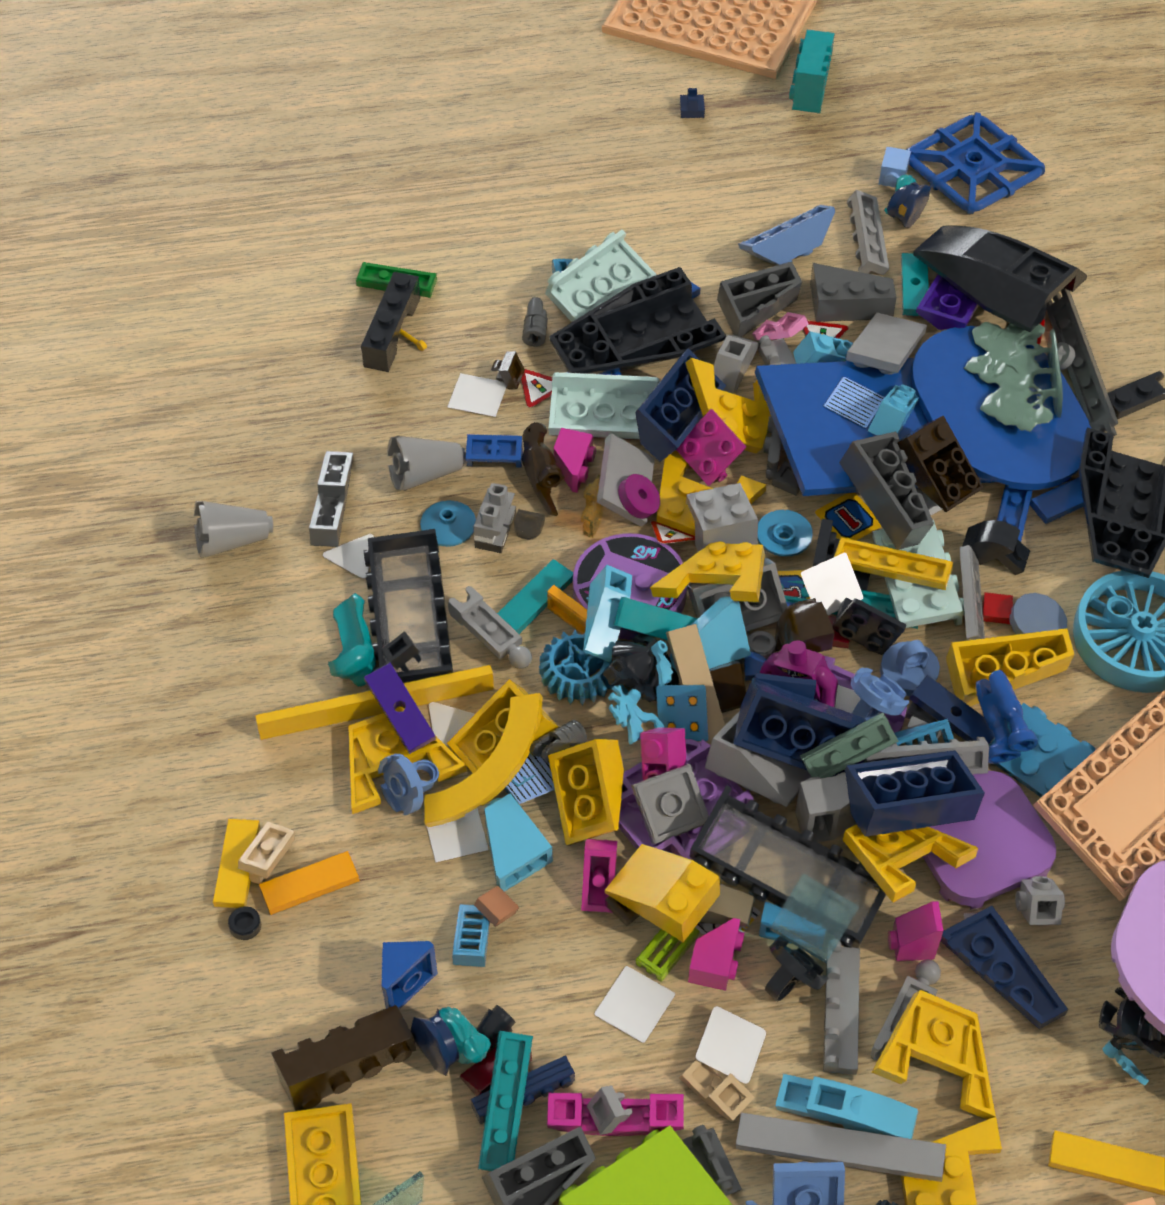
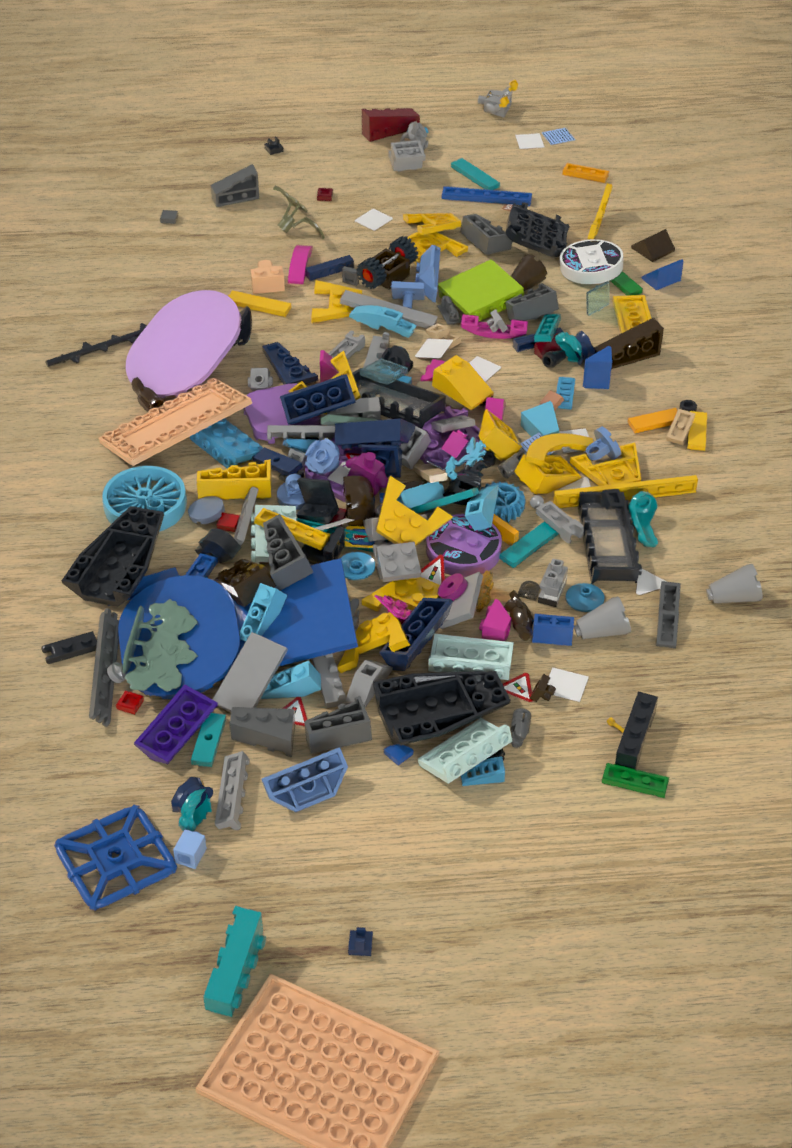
camera: 175 degrees left, 10 degrees down
(392, 693) = (611, 472): dark purple tile -> none
(784, 328) = (321, 706): bright pink slope -> none
(854, 402) = (288, 627): light blue sticker -> none
(946, 1039) = (333, 335): yellow wing -> none
(999, 272) = (140, 717): black wedge -> none
(1000, 708) = (253, 437): blue piece -> none

